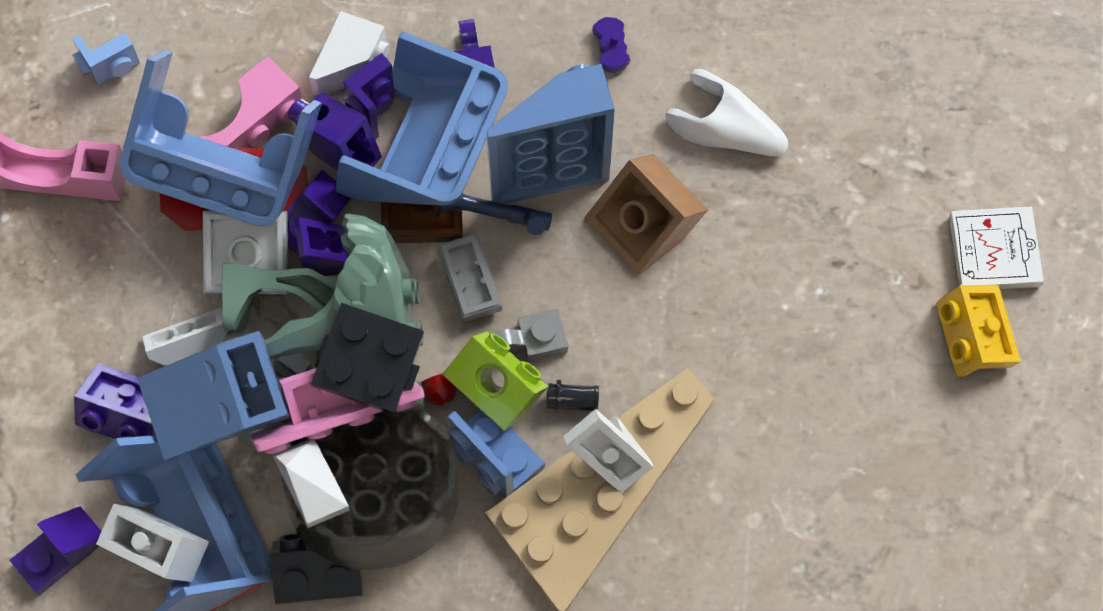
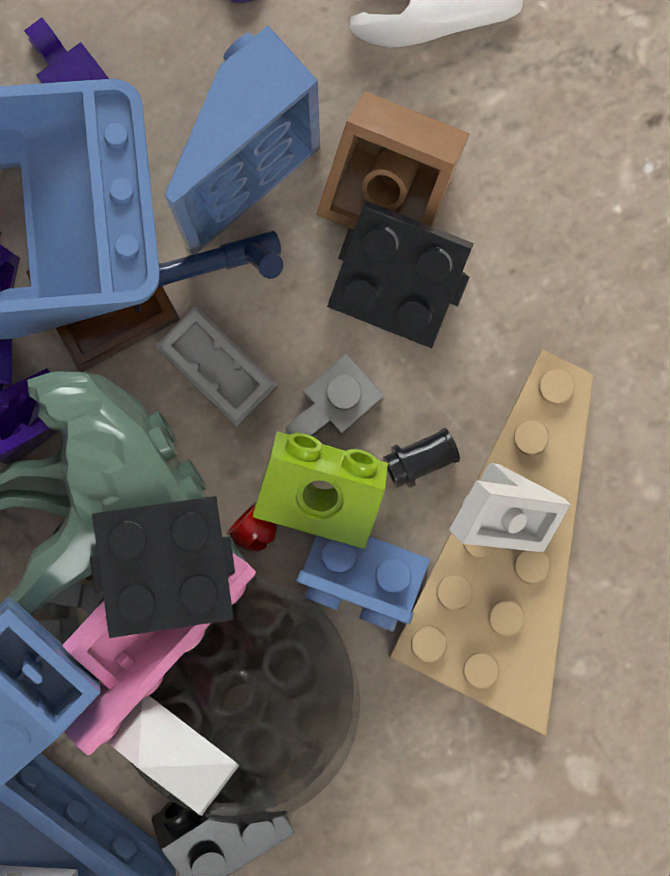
camera: 25 degrees left, 15 degrees up
(618, 275) = (400, 274): none -> black piece

